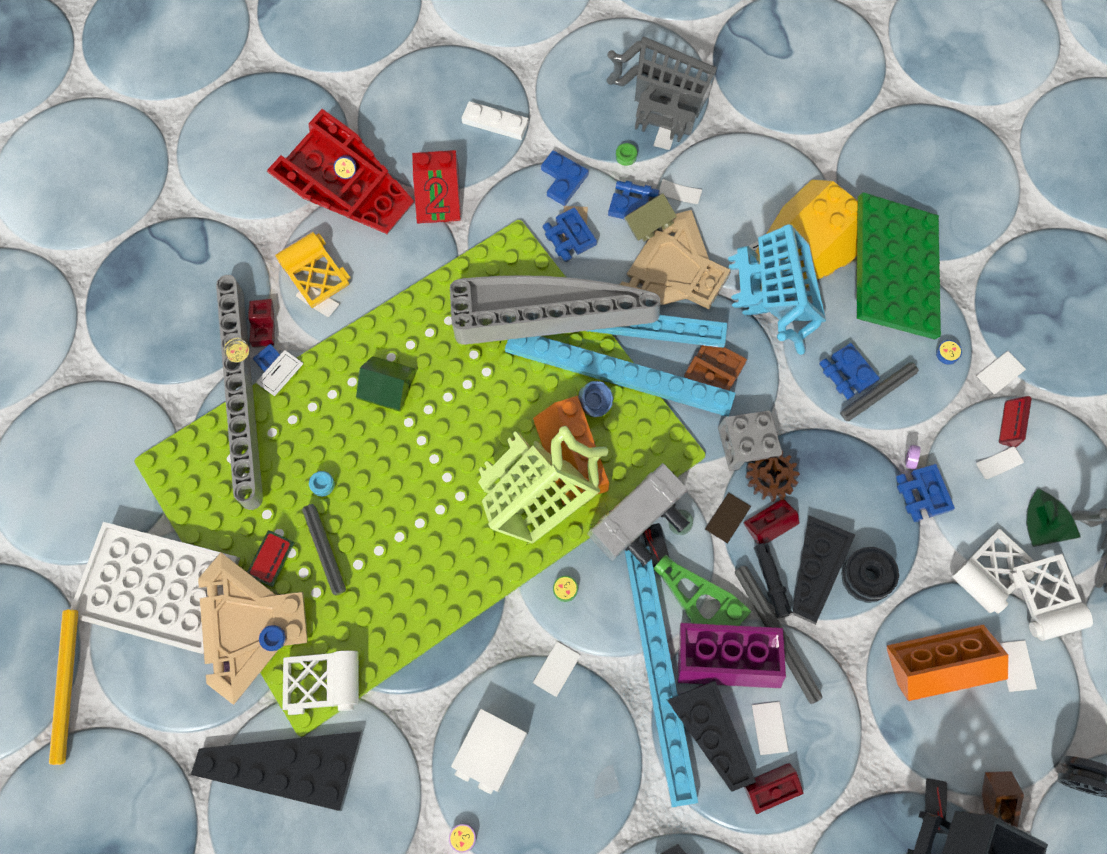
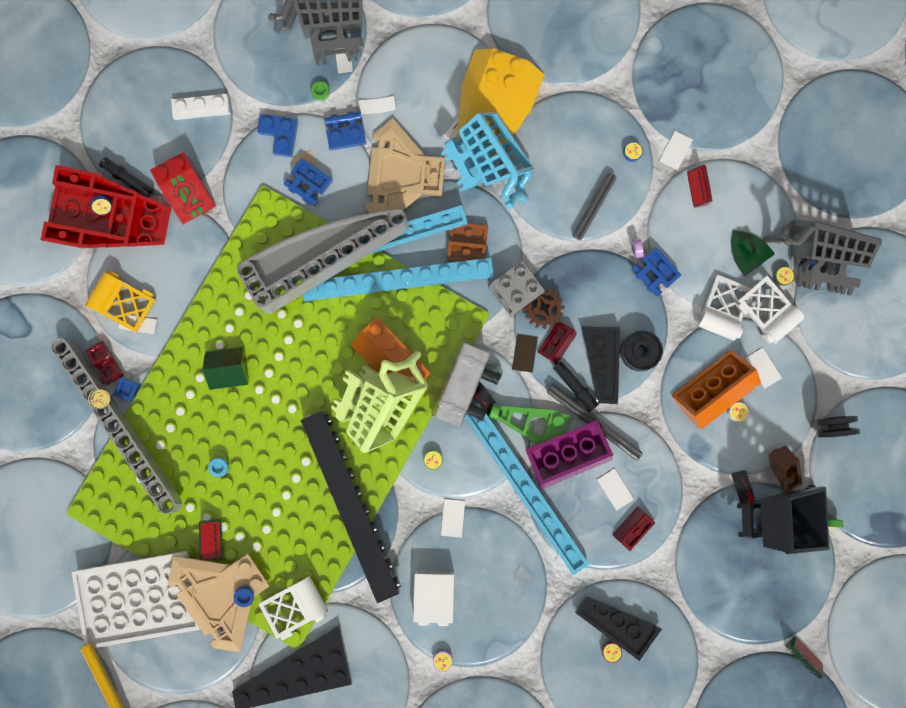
camera: 30 degrees left, 15 degrees up
(279, 373) = (140, 396): white sticker -> none
(323, 549) = (248, 516): dark grey axle -> none
(380, 147) = (120, 173): none -> black pin
(444, 598) = (351, 507): none -> black brick
(595, 398) = (390, 310): medium blue hair -> none
(650, 217) = (365, 141): olive brick -> none
(712, 729) = (573, 508): black wing -> none
(854, 368) = (568, 195): blue plate -> none
(898, 266) = (569, 98): green plate -> none
(964, 703) = (738, 412): none -> light yellow tile
(1000, 463) = (700, 223): white sticker -> none
(1083, 566) = (784, 276): none -> light yellow tile

